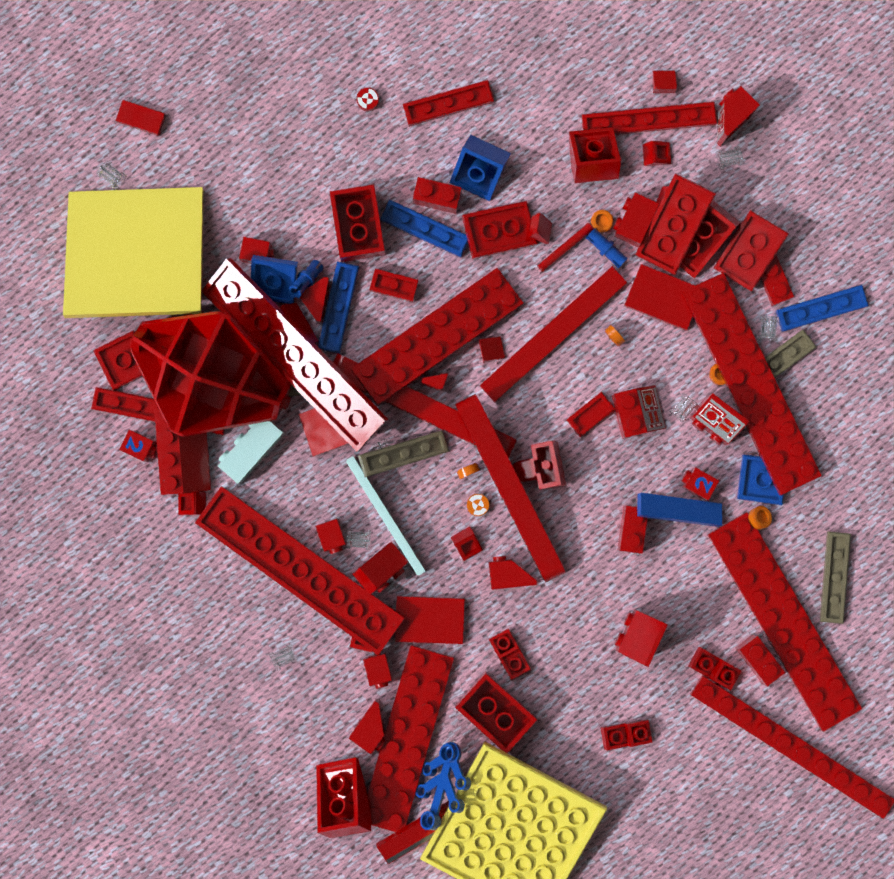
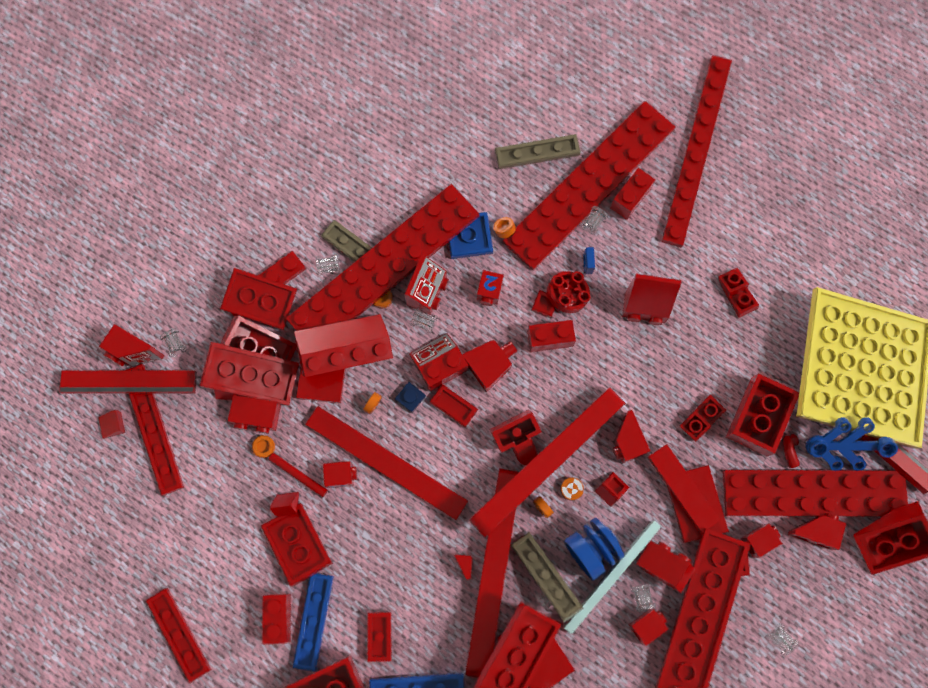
camera: 105 degrees left, 10 degrees down
(416, 505) = (594, 548): none -> blue wheel
(437, 336) = (421, 577): red plate -> none
(447, 611) = (683, 488): none -> red tile
(454, 728) = (789, 442): none -> red arm
(479, 167) = (237, 583): blue slope -> none
(491, 349) = (417, 518): red slope -> none
(554, 286) = (339, 474): none -> red brick
(594, 155) = (199, 471): red slope -> none
(606, 248) = (289, 434): blue pin -> none
(610, 374) = (410, 397): none -> dark blue plate
(623, 461) = (490, 362): none -> red torso
(656, 153) = (184, 412): red slope -> none
(668, 535) = (543, 305): none -> red tile
(674, 561) = (568, 291): none -> red tile
(679, 321) = (342, 345): none -> red slope
(679, 509) = (520, 298): blue tile -> none
(700, 592) = (589, 260): none -> blue tile
(701, 106) = (128, 382): none -> red tile
(714, 668) = (652, 231): red slope -> none
(742, 611) = (594, 220): none -> clear bush
(822, 308) = (297, 224): blue tile -> none

